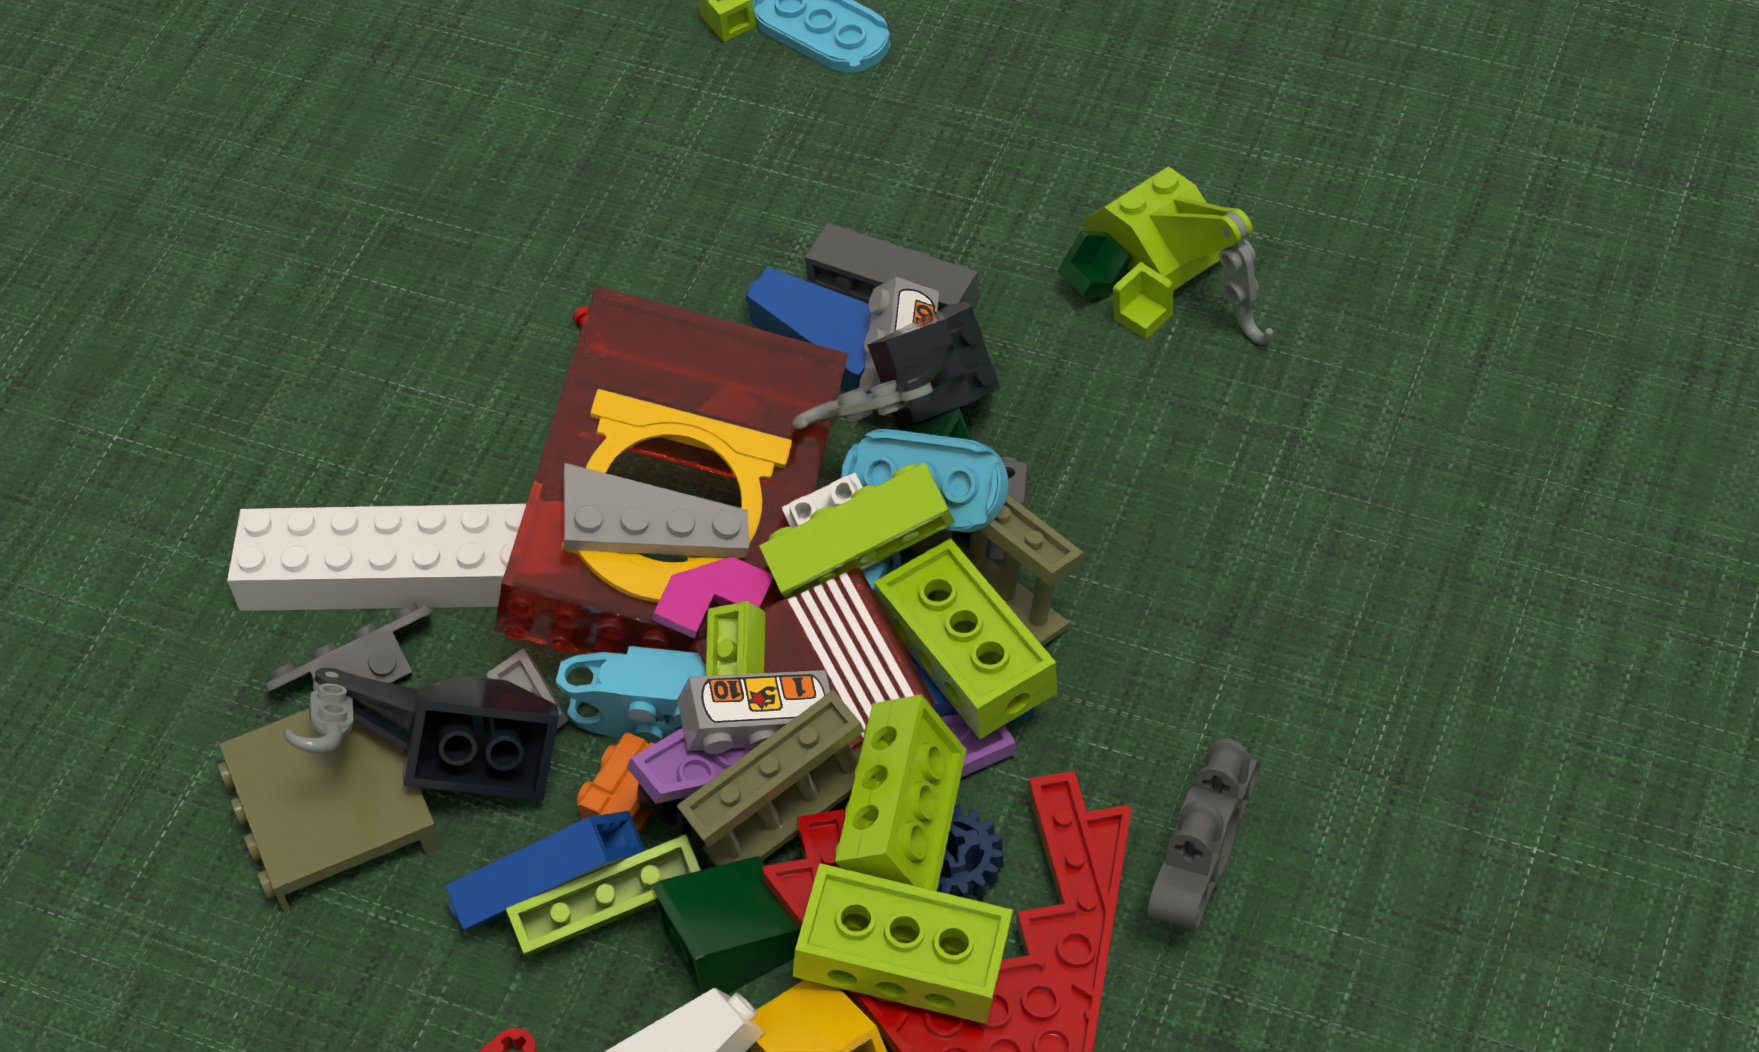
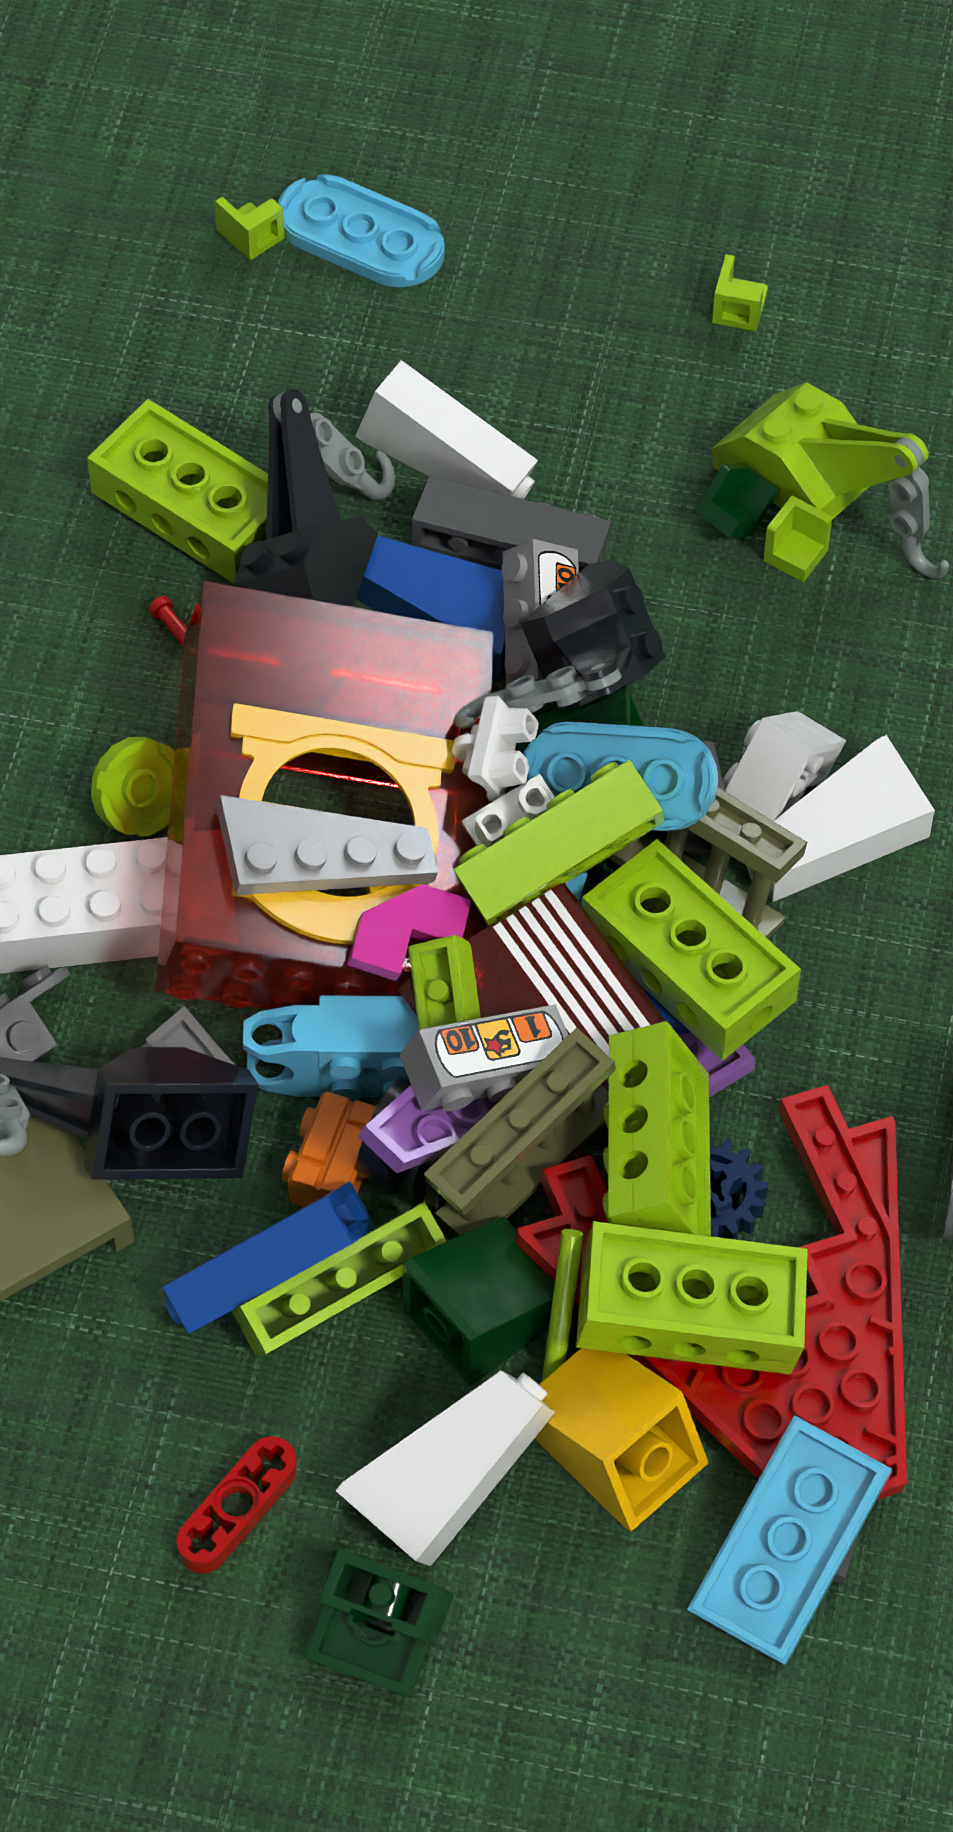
camera: 15 degrees left, 5 degrees up
(513, 456) = (134, 786): none -> lime tile
(627, 222) = (182, 487): none -> lime brick
(708, 265) = (306, 543): none -> black slope
(794, 918) = (562, 1300): none -> lime bar
(819, 449) = (490, 748): none -> white hips
(847, 192) = (442, 437): none -> white slope
(1085, 487) = (781, 761): none -> white brick
(1131, 101) = (737, 301): none -> lime panel
(1141, 545) = (855, 818): none -> white slope

